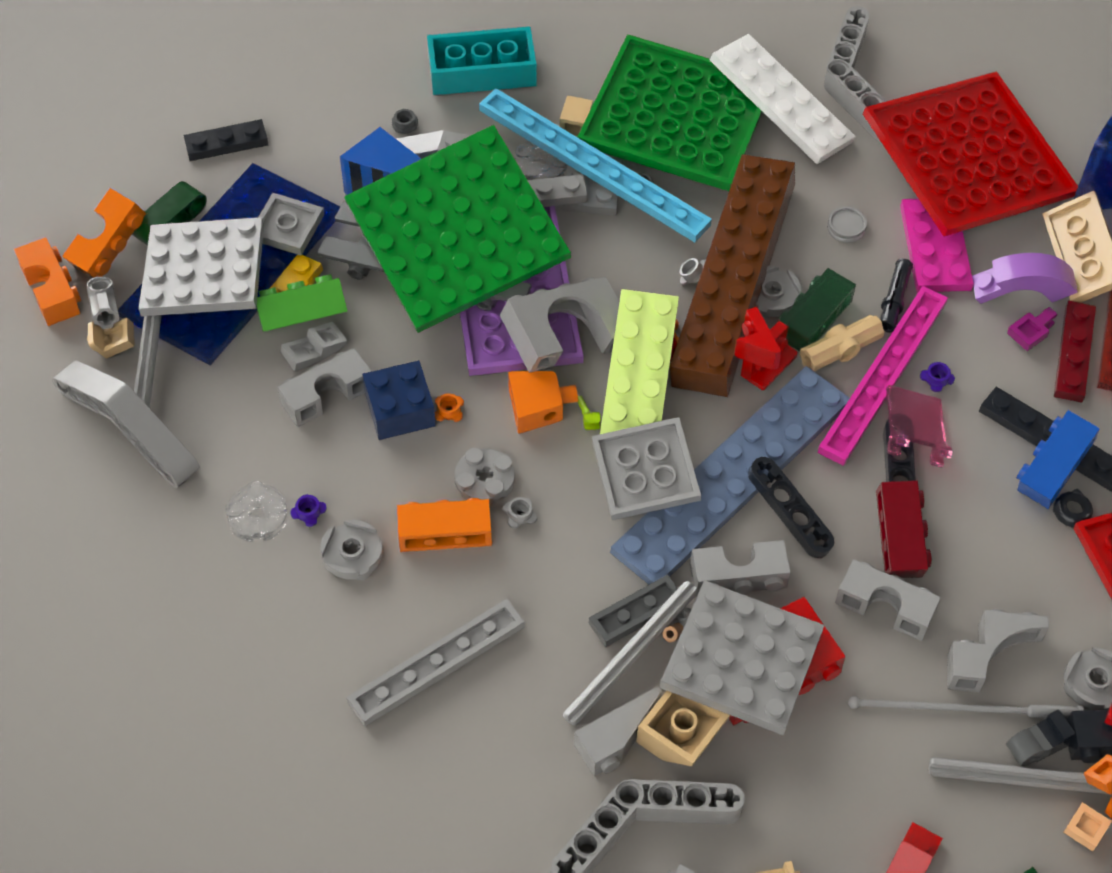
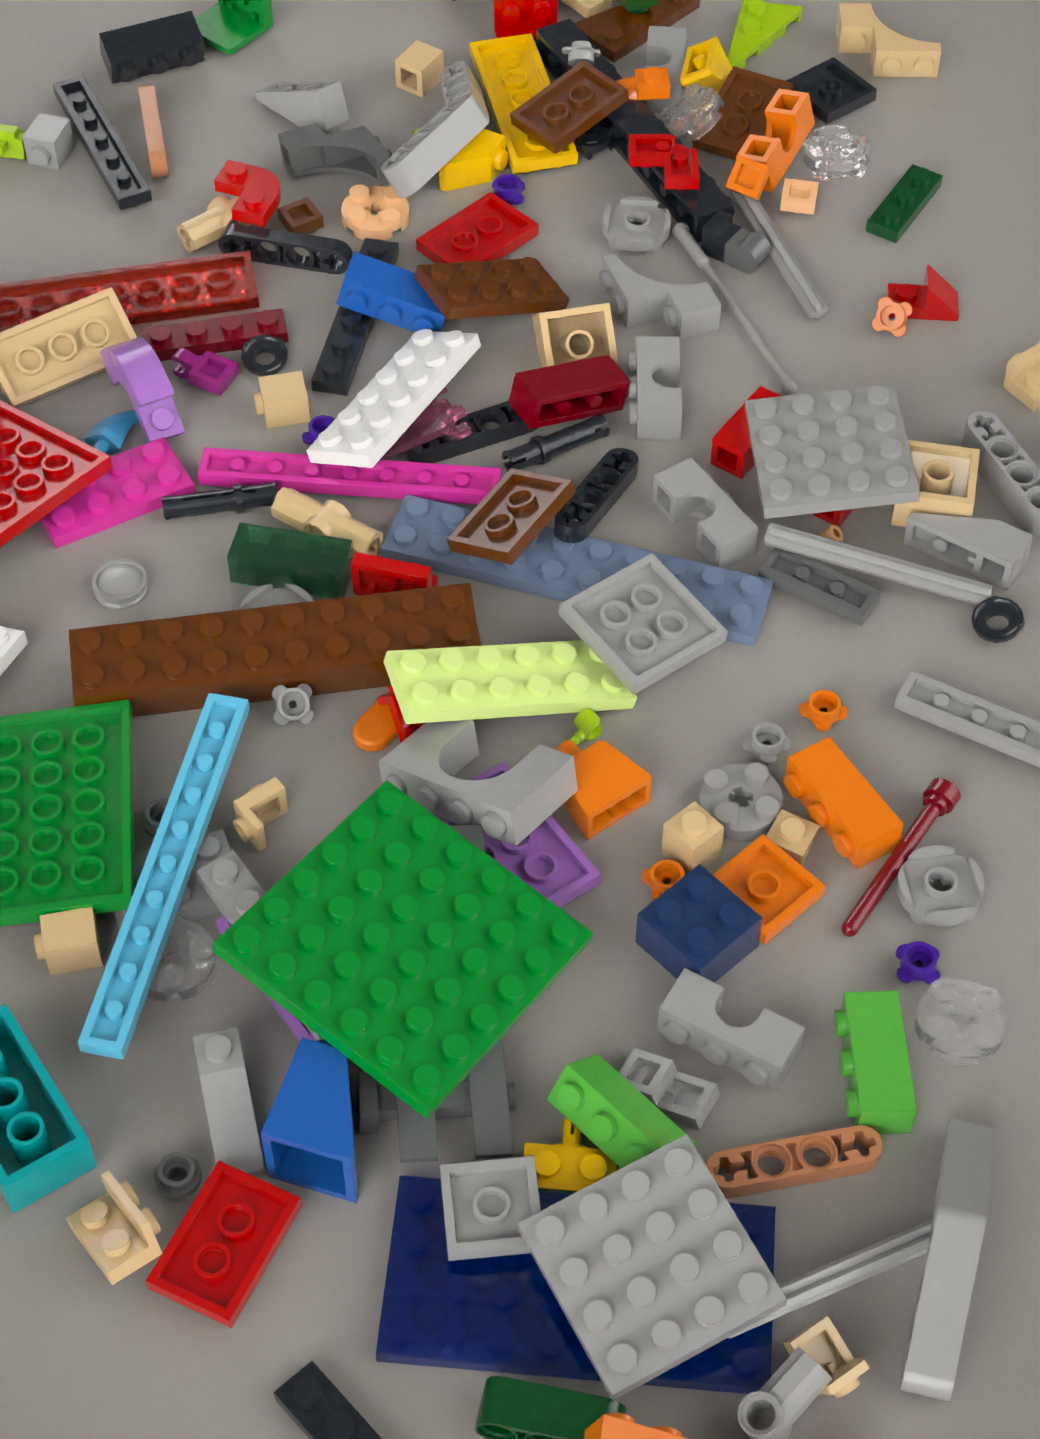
camera: 115 degrees left, 5 degrees down
(227, 383) = (796, 1169): none -> nougat beam
(257, 447) = (875, 1061): none -> bright green brick
(347, 119) = (224, 1244): none -> red plate
(386, 84) = (116, 1231): none -> tan bracket
(409, 452) = (771, 885): none -> orange plate
(415, 586) = (938, 800): none -> dark red piece
(441, 488) = (793, 835): none -> tan plate
(464, 426) = (692, 838): none -> tan brick
(527, 551) = (823, 701): none -> orange plate
(543, 701) = (997, 607): none -> black piece
(615, 220) = (258, 808): none -> tan bracket
(758, 342) = (404, 553): red slope -> none
(781, 430) = (511, 516): none -> reddish brown plate
(858, 498) = (542, 448): none -> black pin
(898, 816) = (882, 320): none -> orange plate
(945, 419) = (394, 398): none -> white plate
(964, 566) = (575, 334): none -> tan slope
(979, 360) = (282, 399): none -> tan brick
(986, 253) = (110, 432): none -> dark azure bar
(1036, 360) = (263, 344): none -> black piece
(1042, 527) = (491, 288): none -> reddish brown plate

